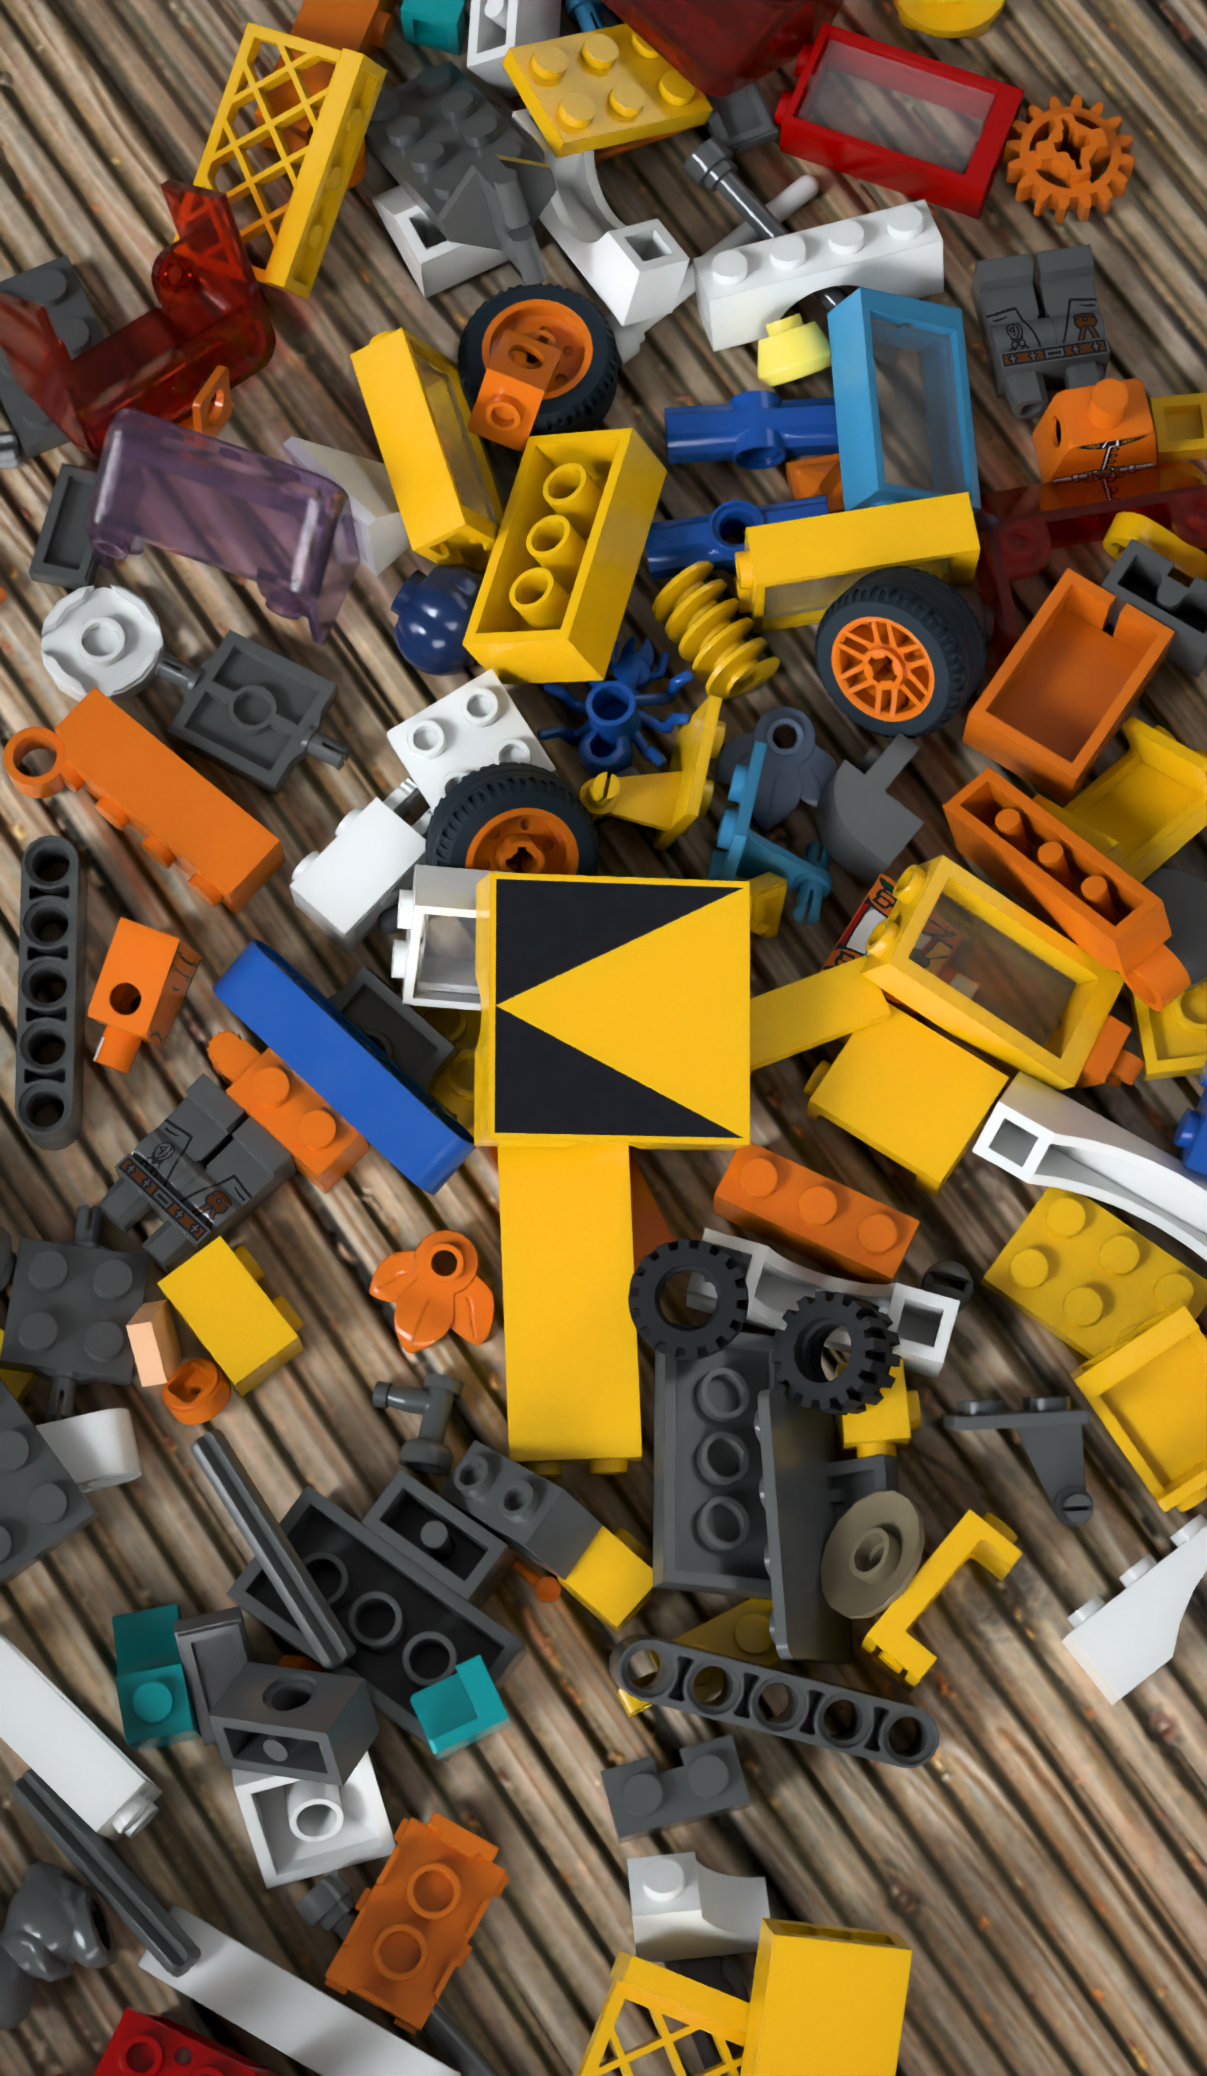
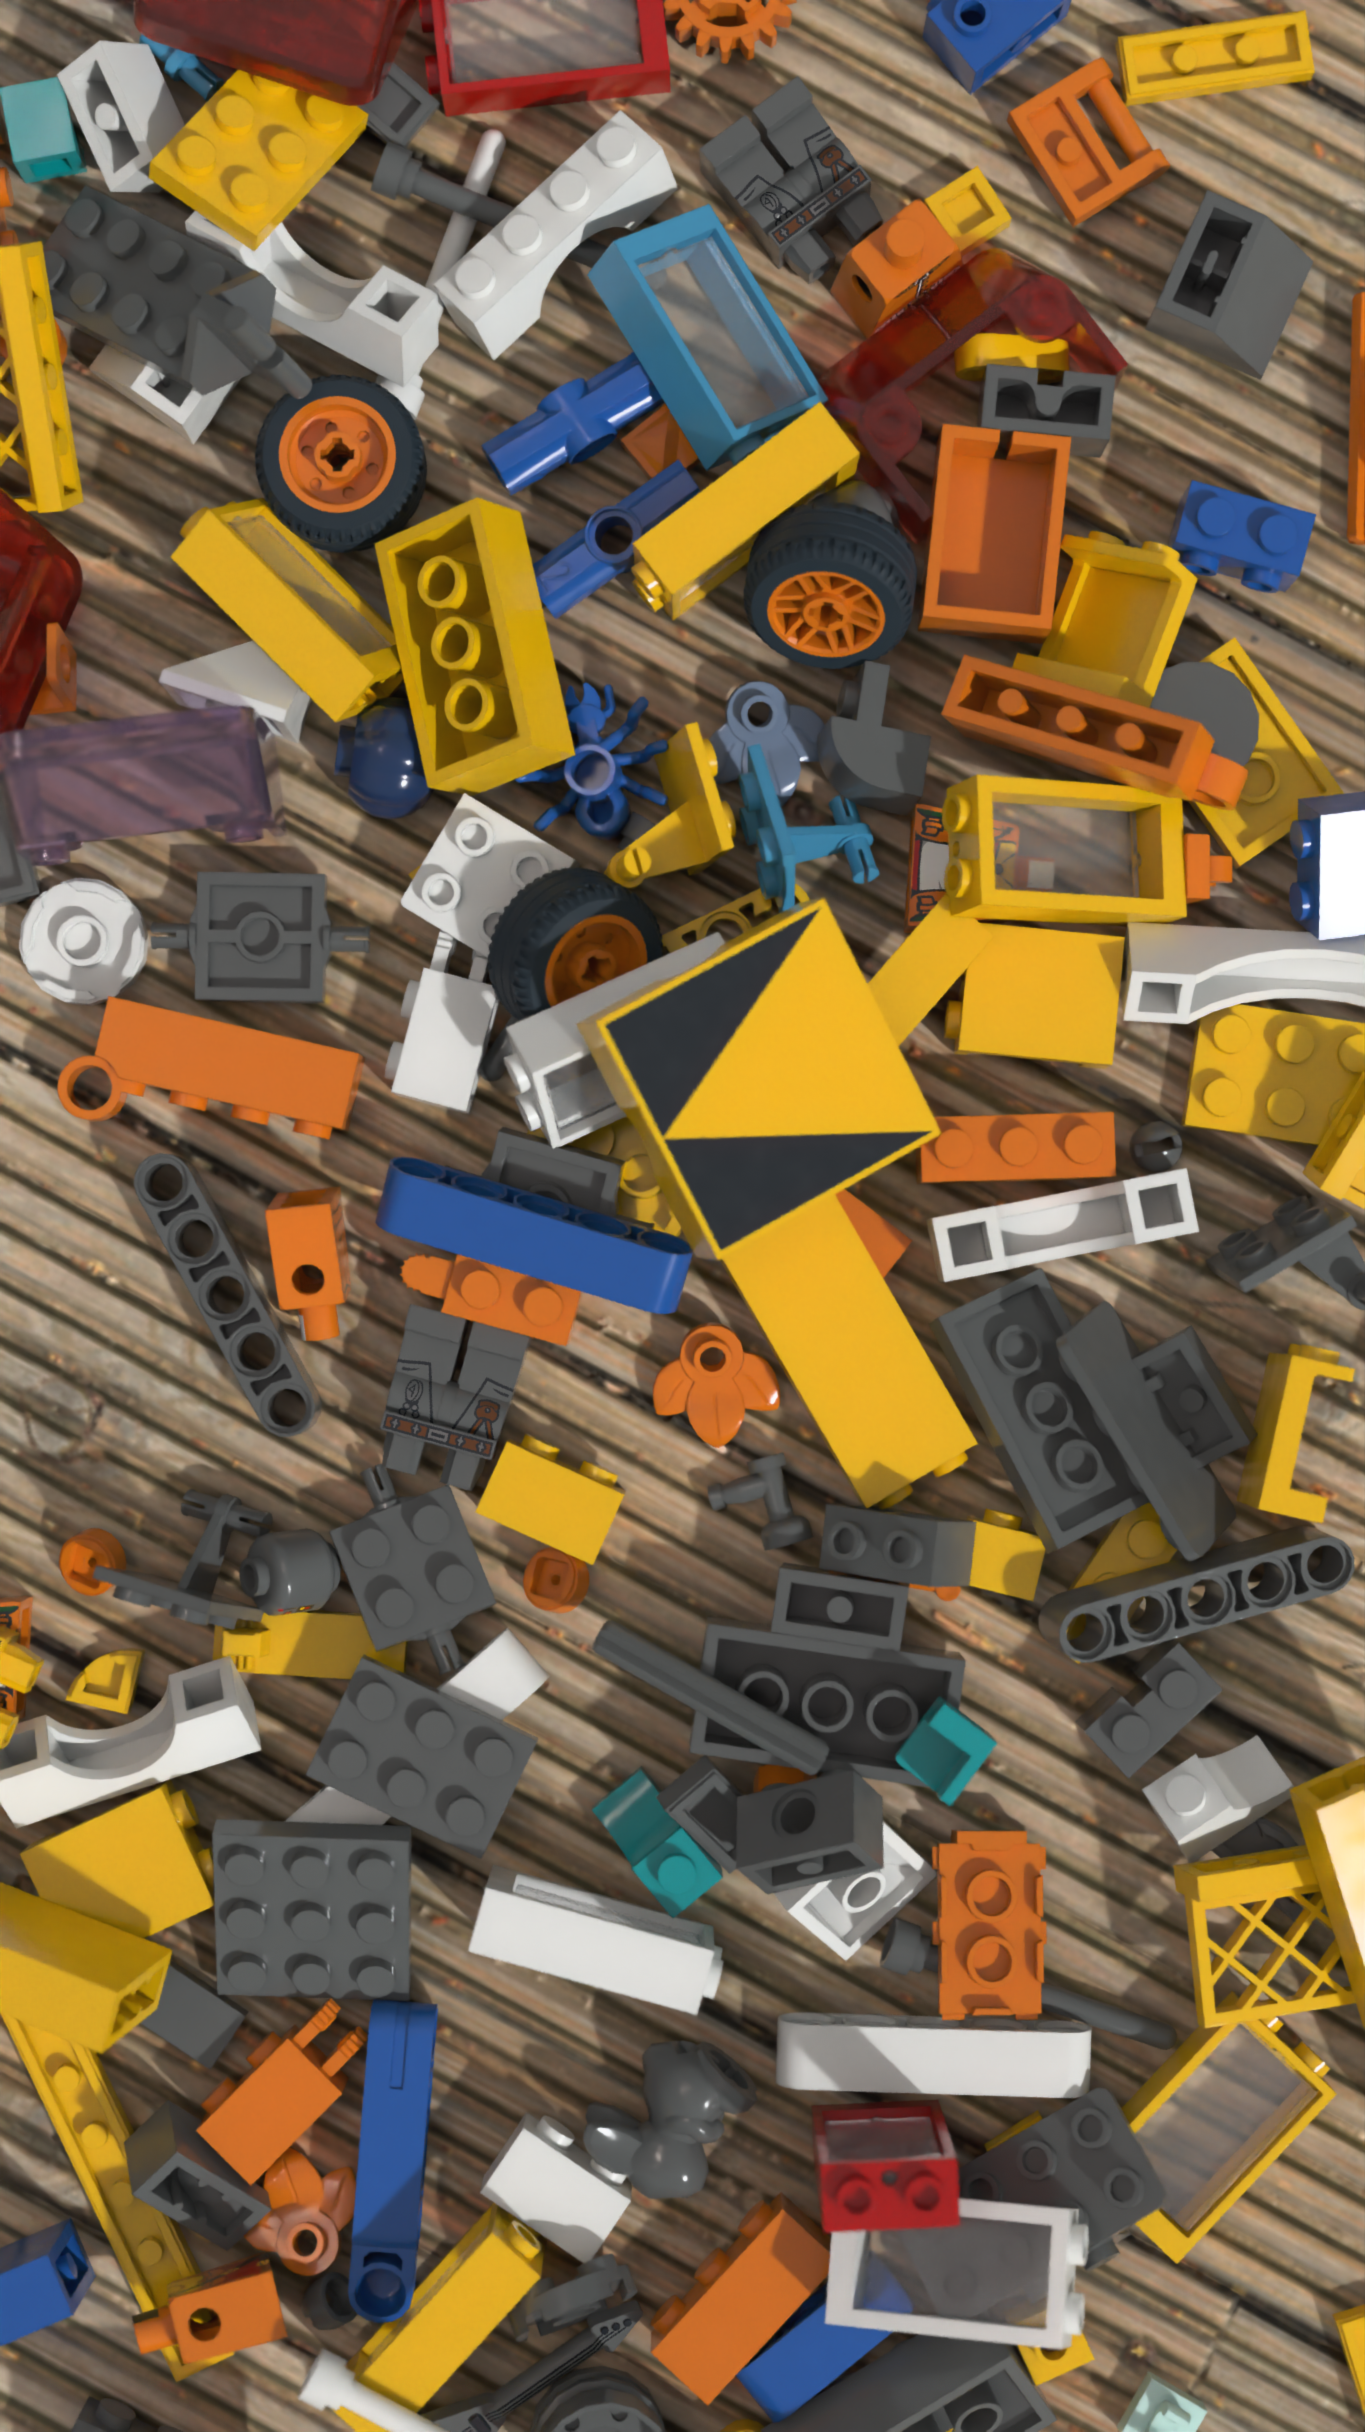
camera: 30 degrees left, 15 degrees up
(107, 1875) = (729, 2035): dark grey axle -> none
(154, 1343) = (499, 1561): light nougat tile -> none
(511, 393) = (339, 516): orange bracket -> none
(692, 1257) = (982, 1324): black tyre -> none
(709, 635) = (641, 647): yellow piece -> none
(766, 903) = (820, 880): yellow tile -> none
(792, 351) = (571, 327): light yellow cone -> none
(803, 1345) = (1073, 1289): black tyre -> none
(872, 1554) = (1222, 1430): dark tan dish -> none
(884, 1425) = (1151, 1292): yellow brick -> none

